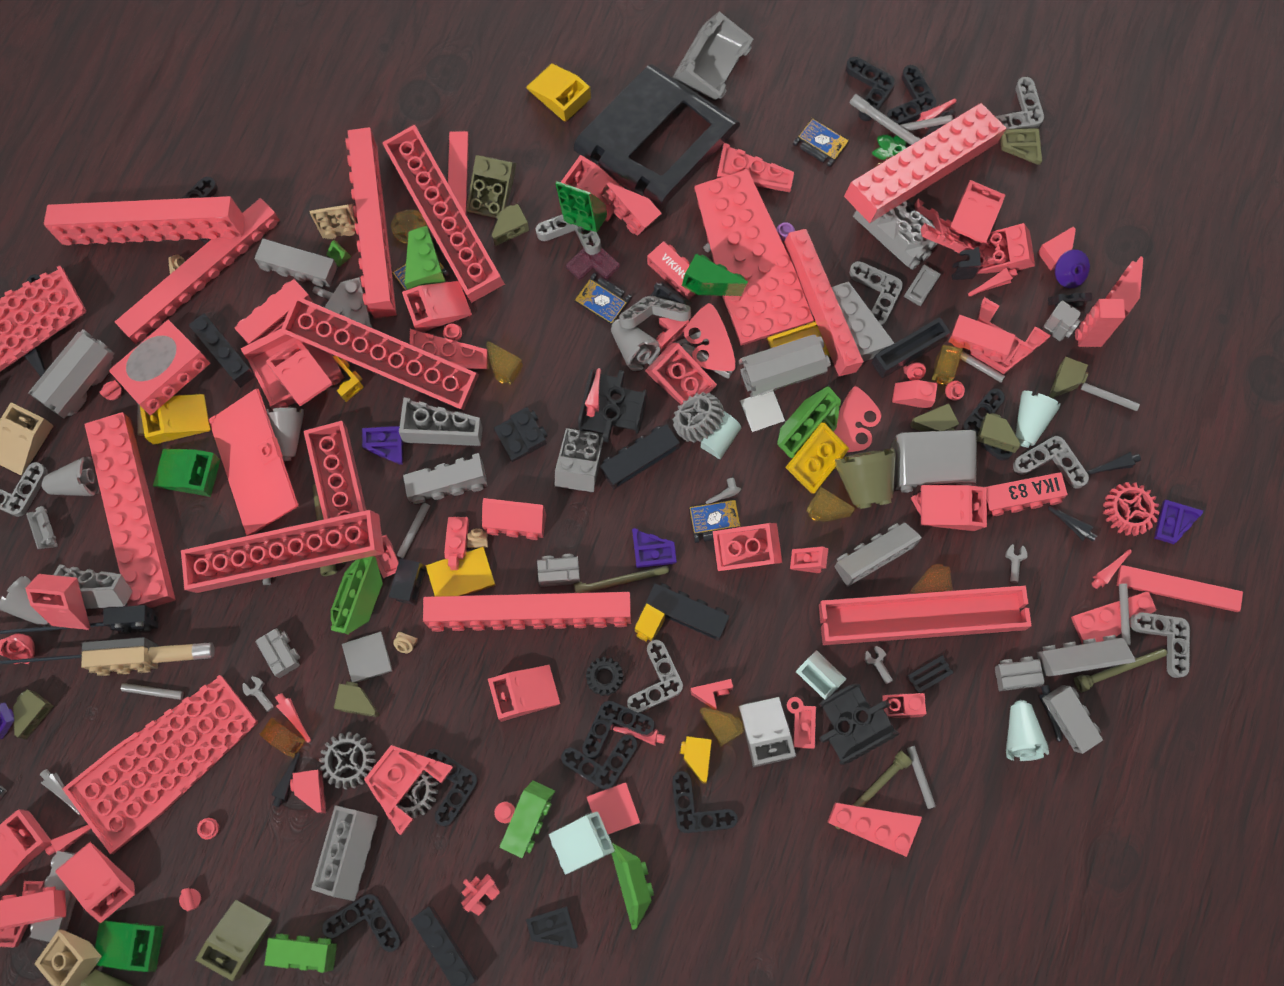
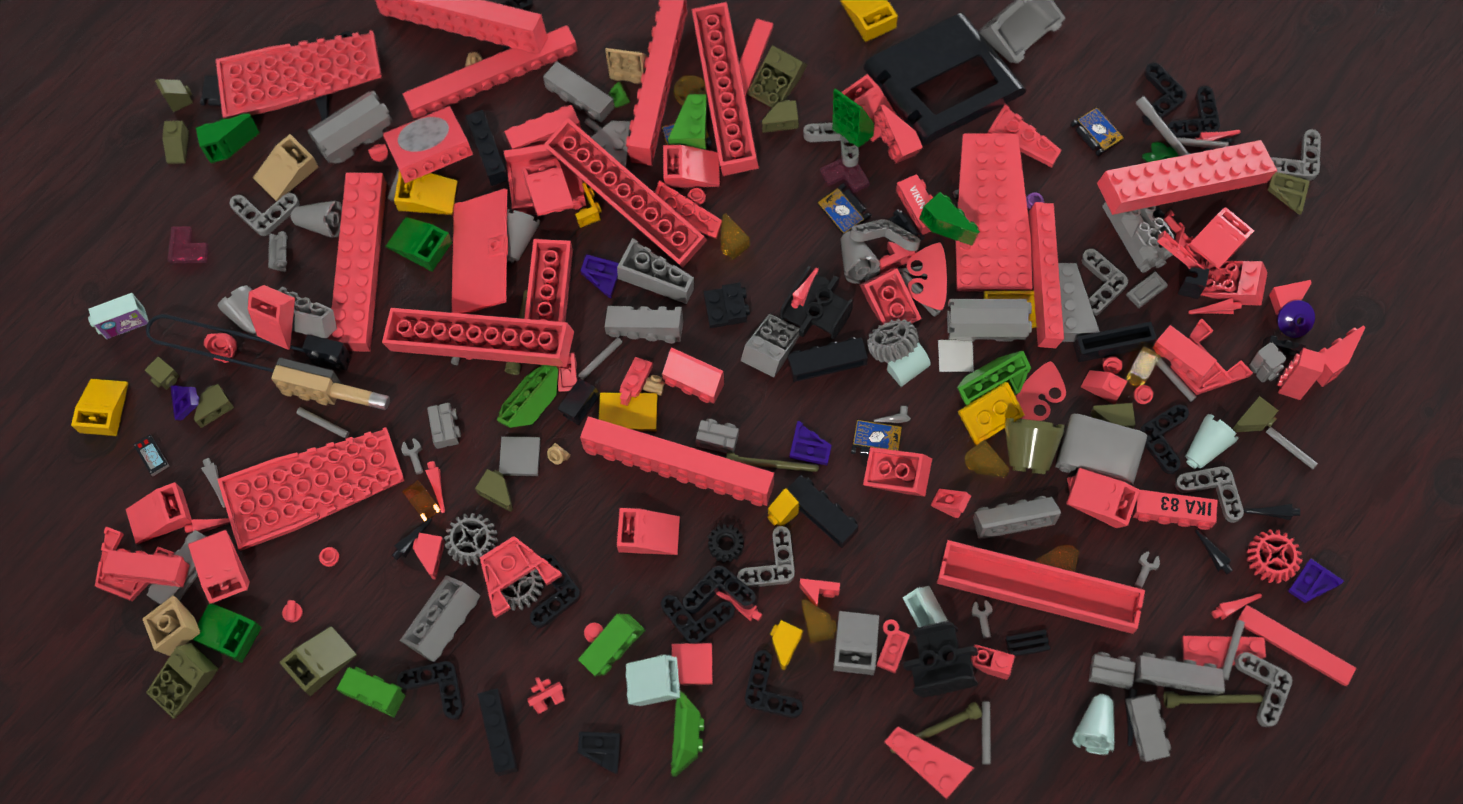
camera: 20 degrees right, 5 degrees down
(997, 433) = (1169, 445): olive slope -> none

